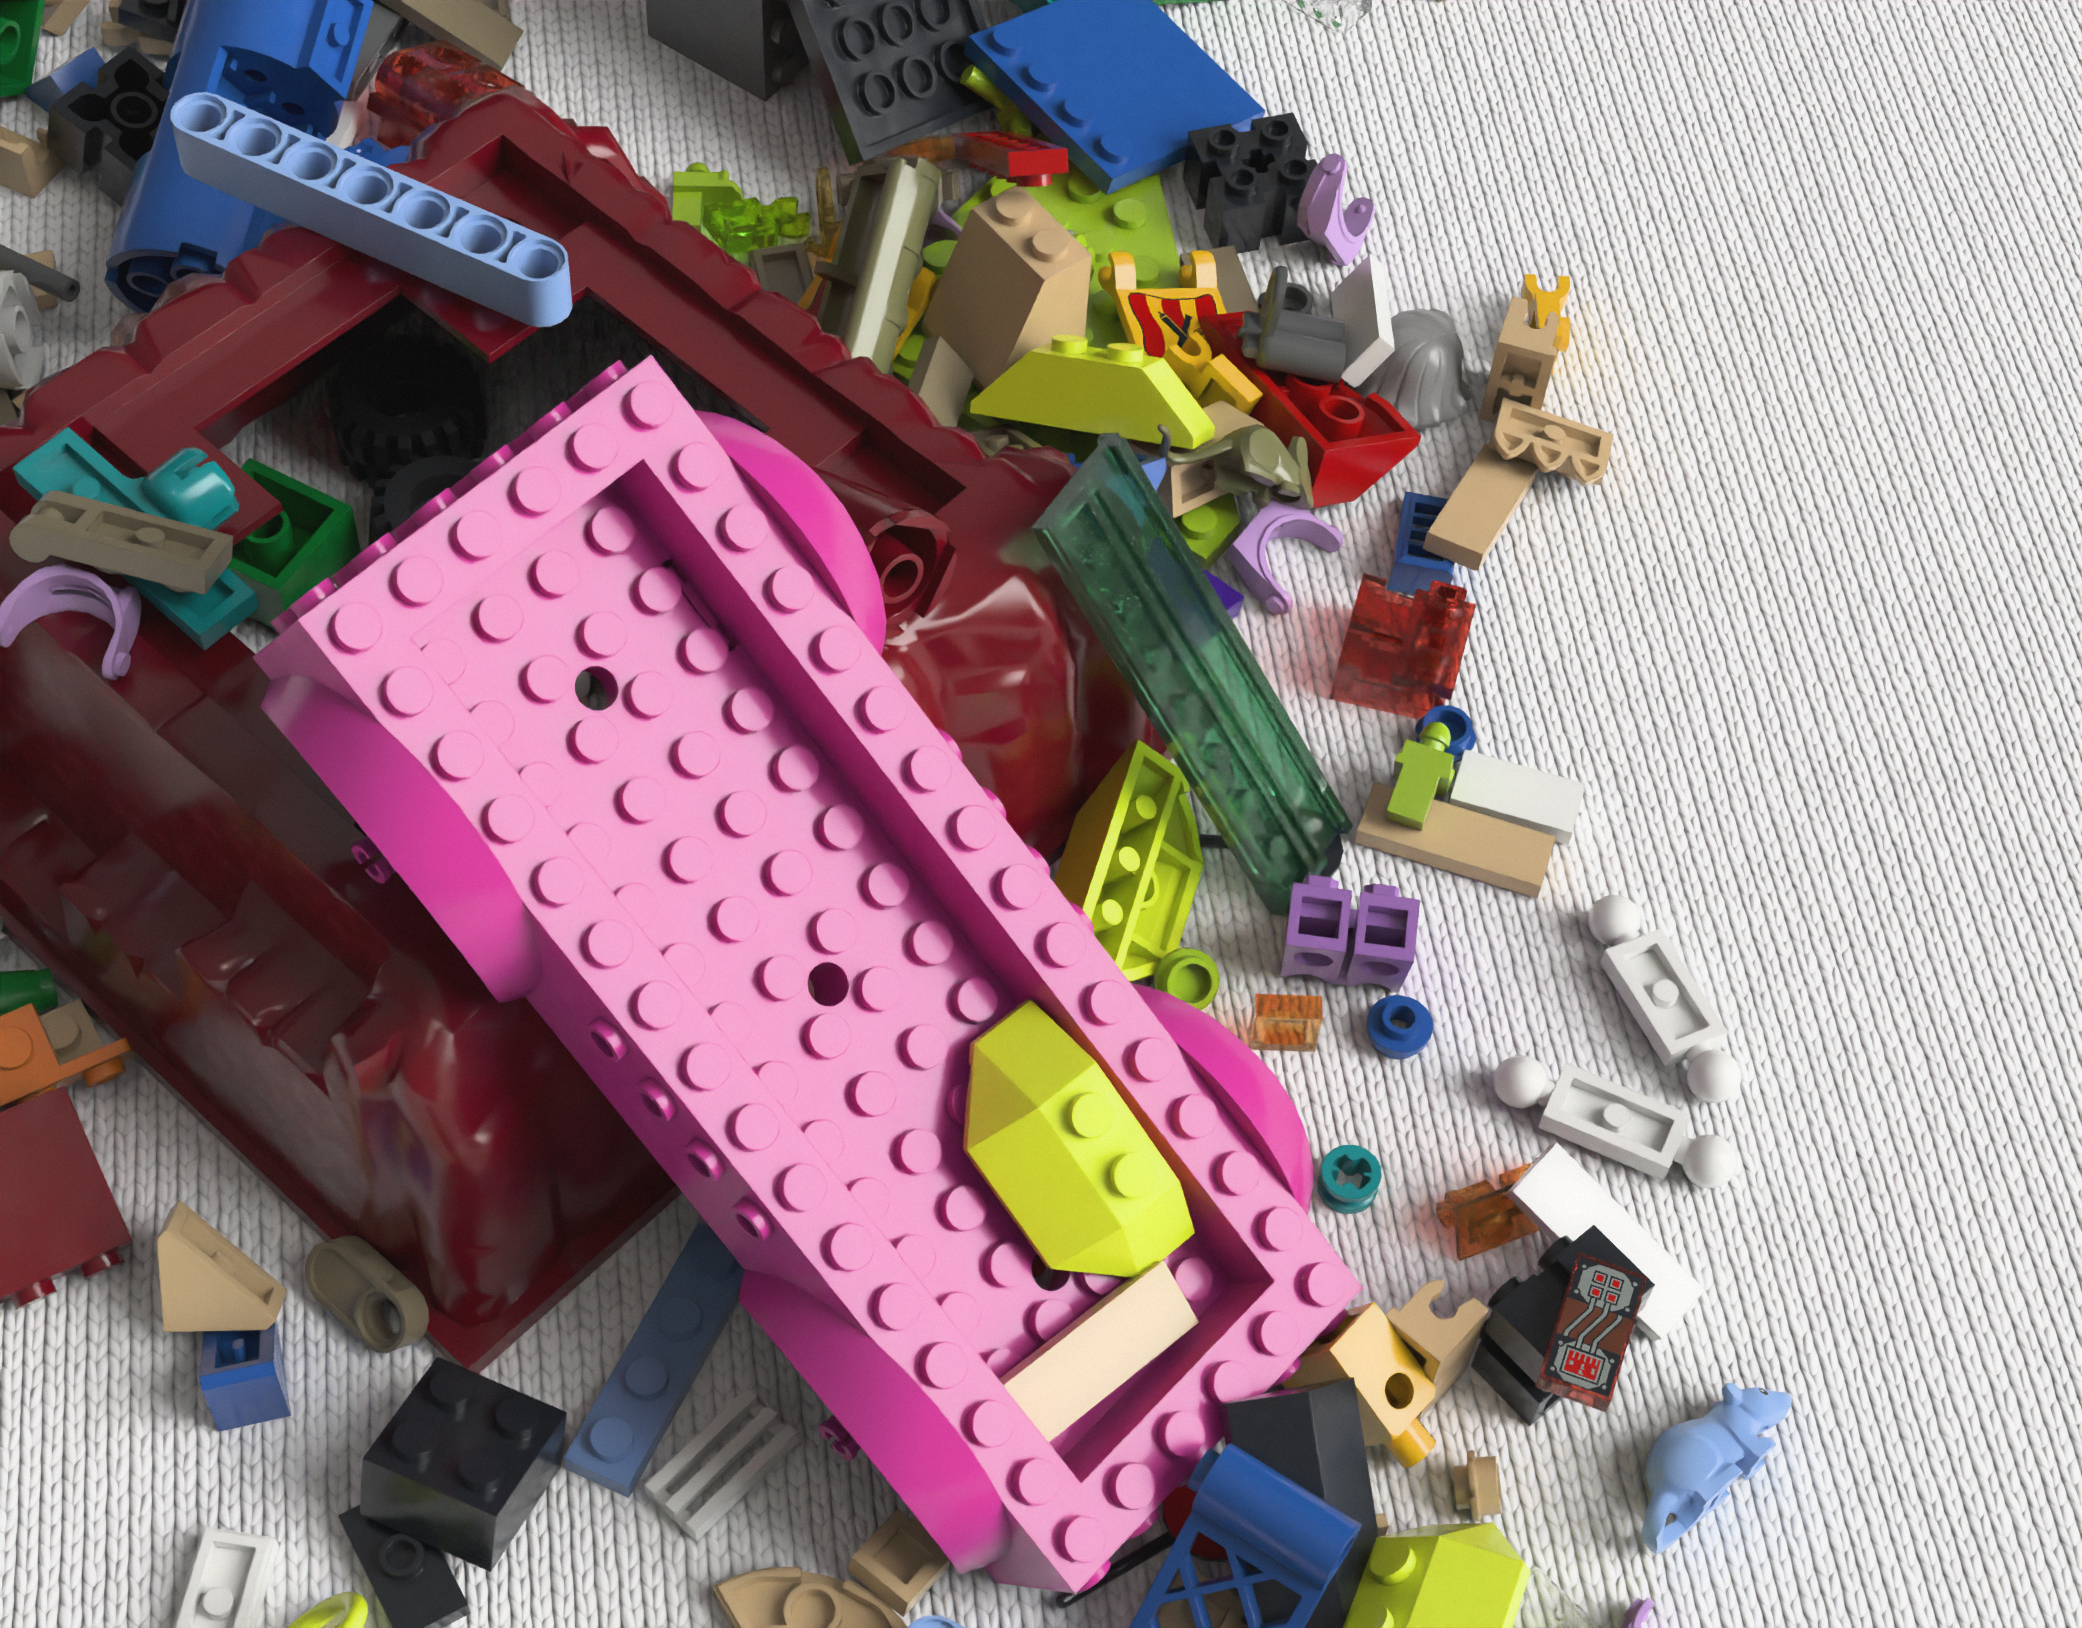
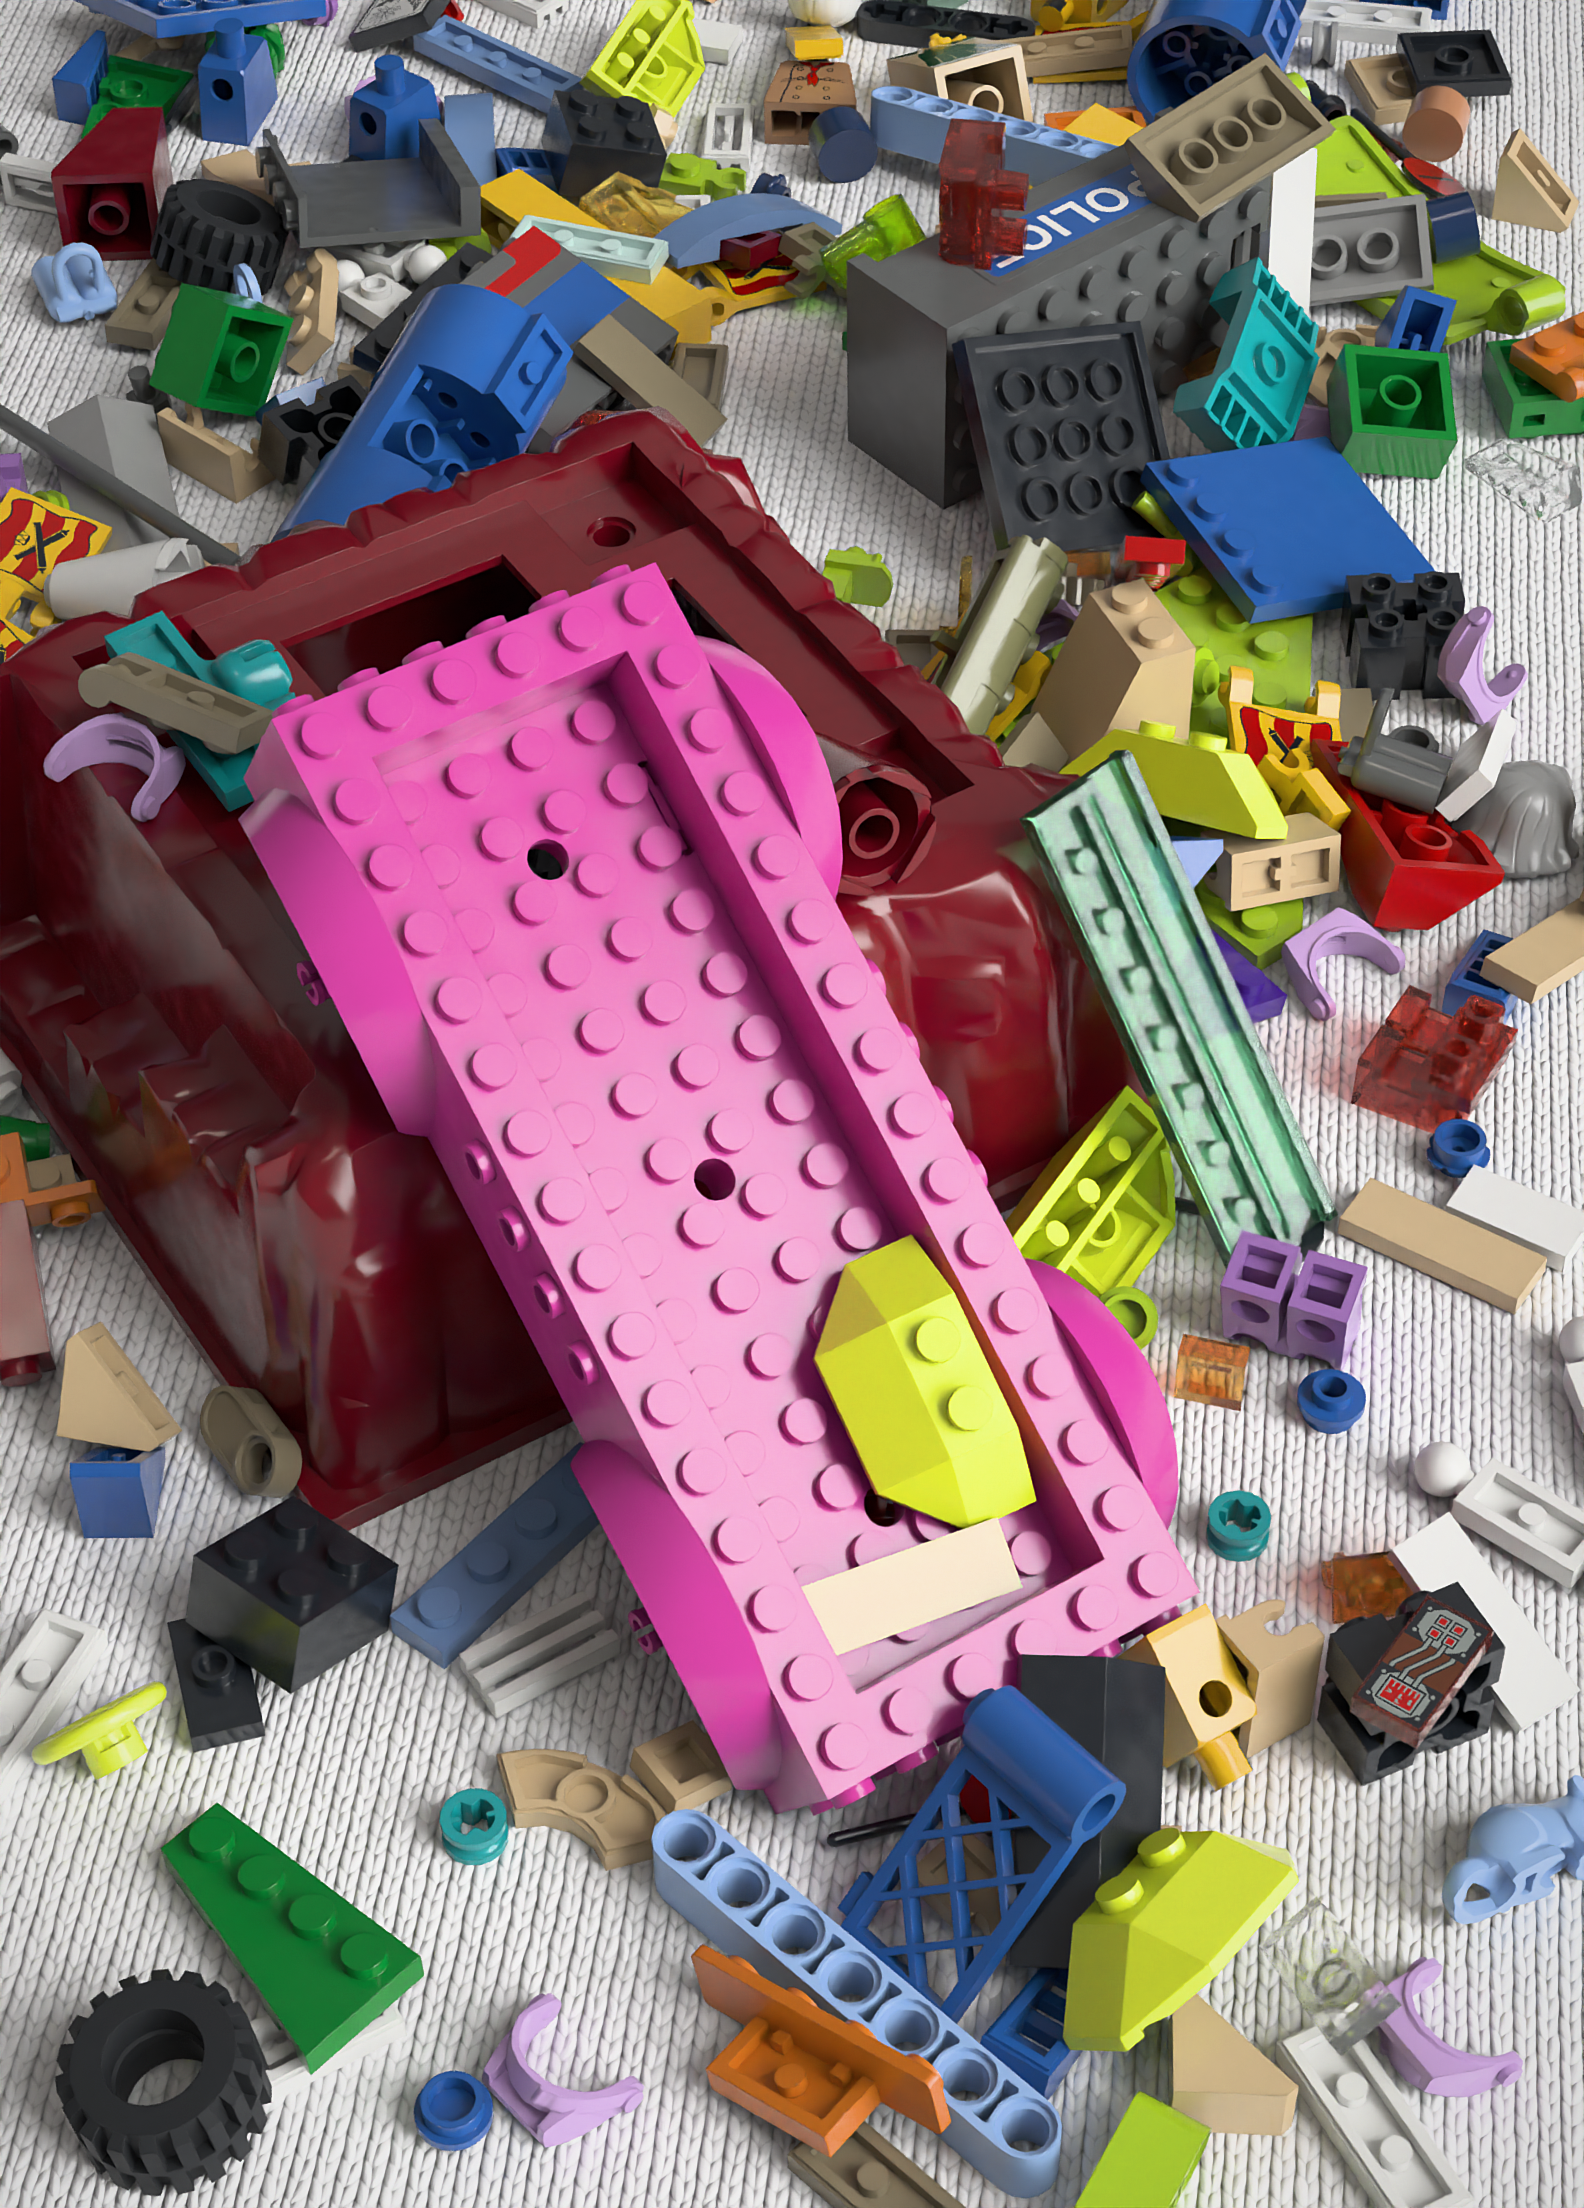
camera: 20 degrees right, 10 degrees down
(373, 209) = (485, 475): light blue beam -> none
(751, 226) = (898, 608): clear neon green plate -> none
(1254, 462) = (1321, 865): olive animal -> none
(1421, 774) = (1416, 1174): lime piece -> none
(1478, 1486) = (1288, 1820): tan plate -> none

